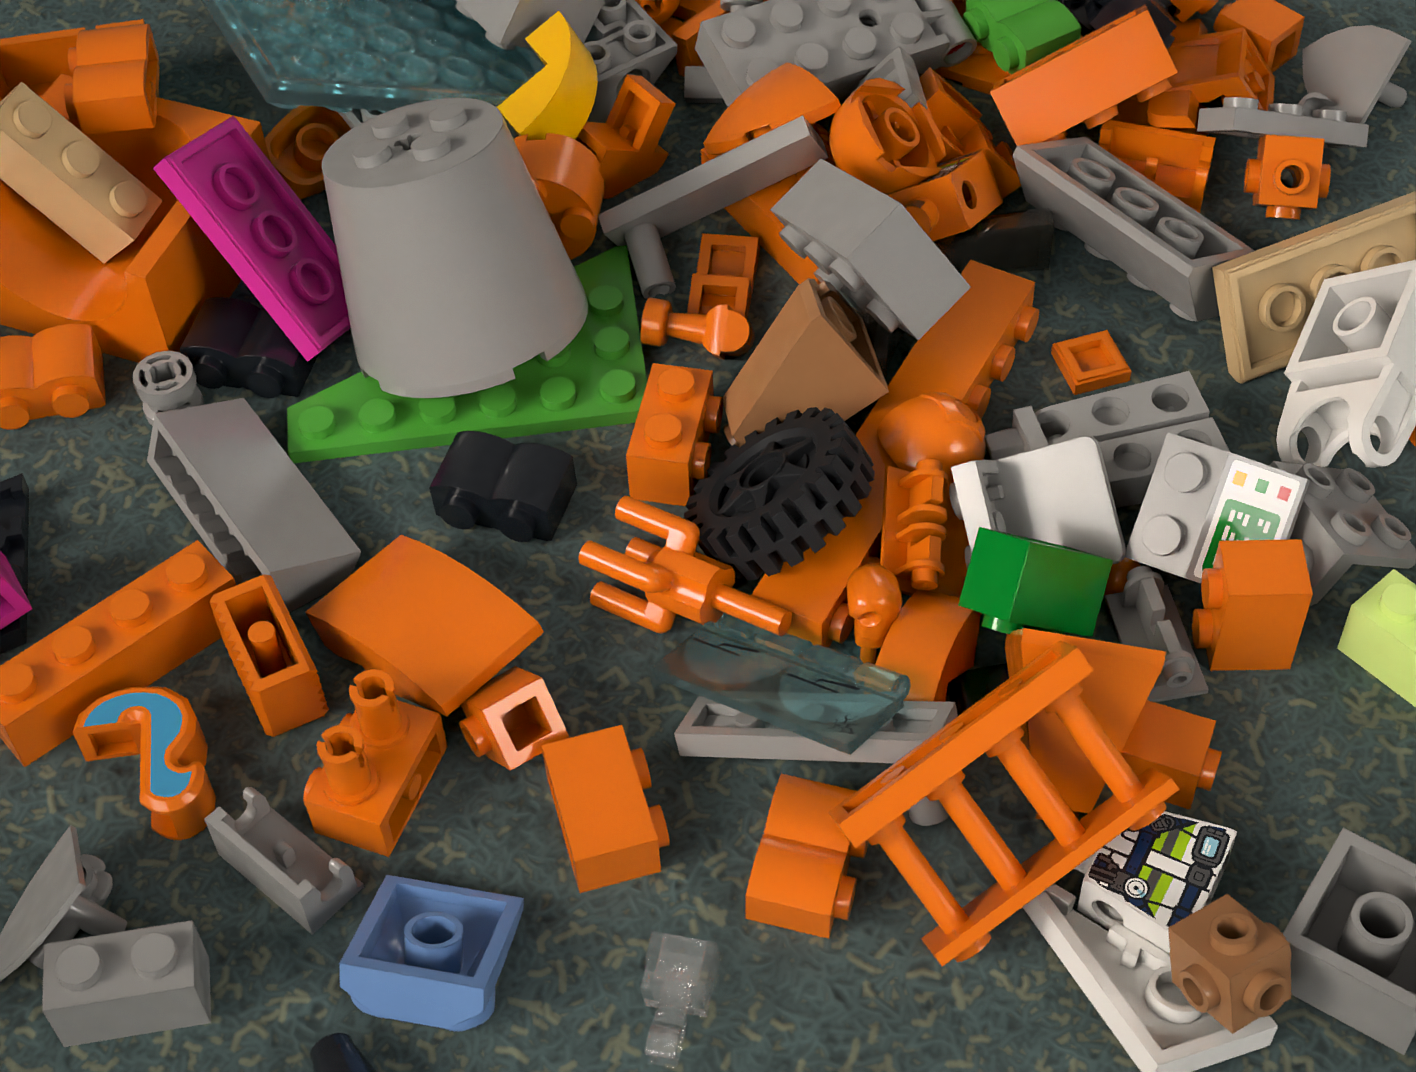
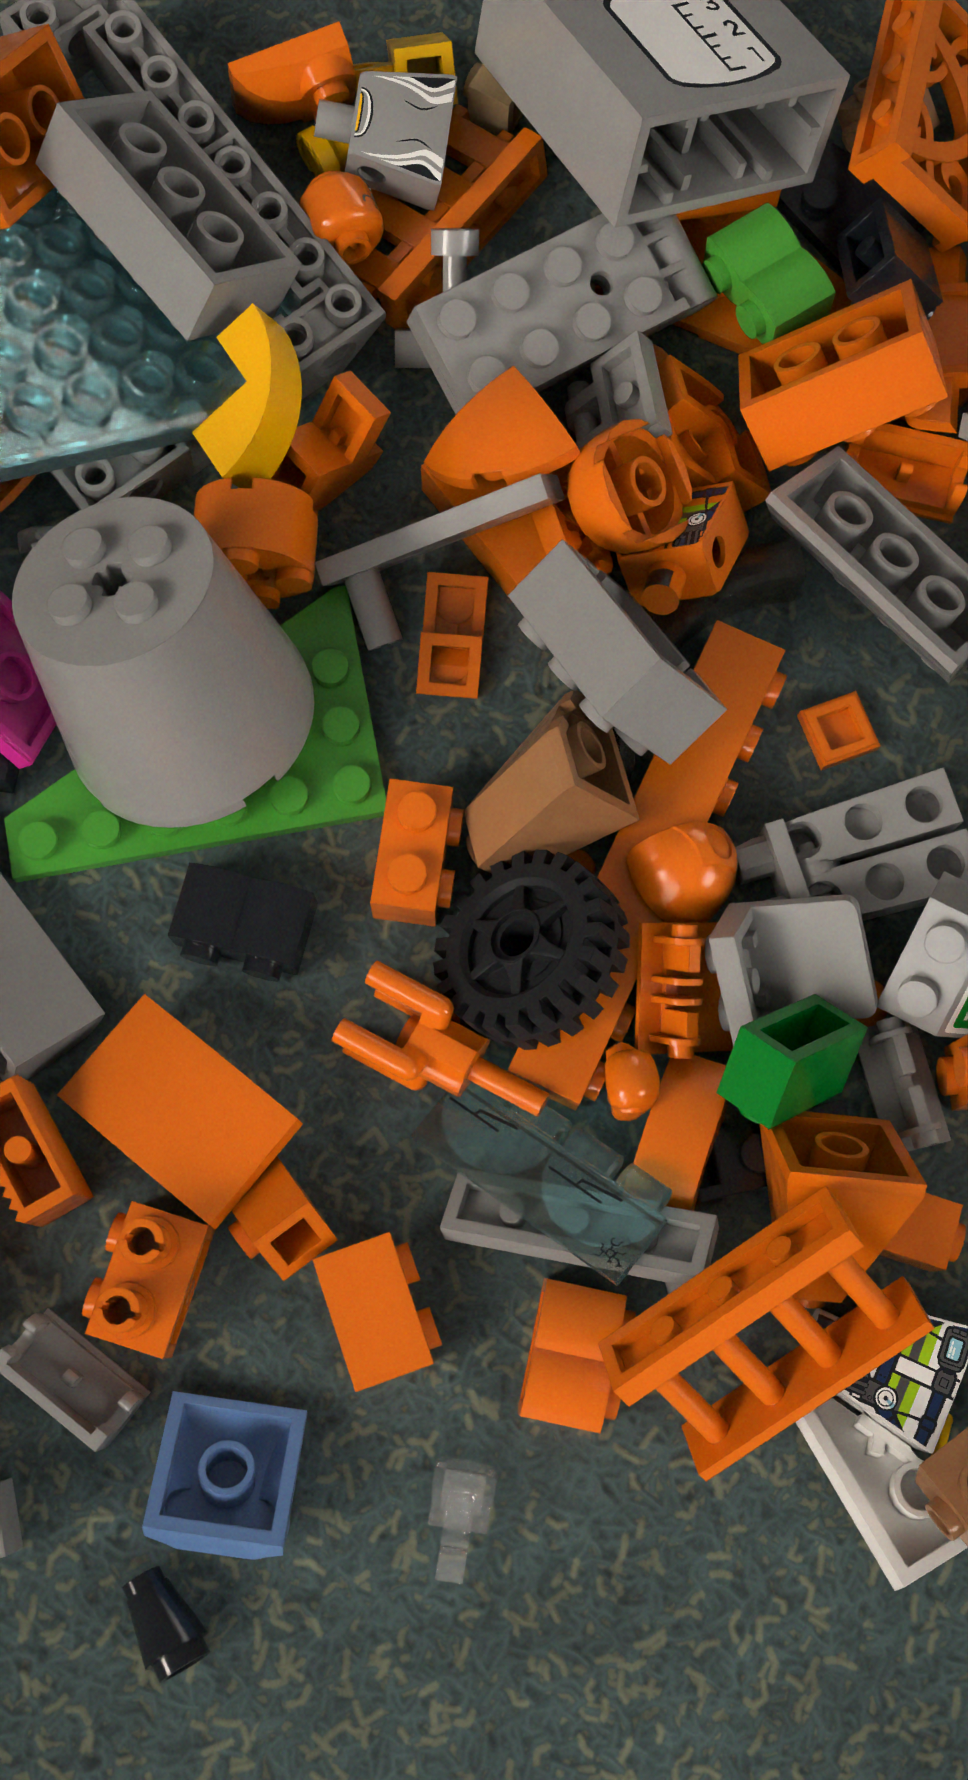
camera: 10 degrees left, 25 degrees up
(719, 331) = (457, 710): orange leg -> none

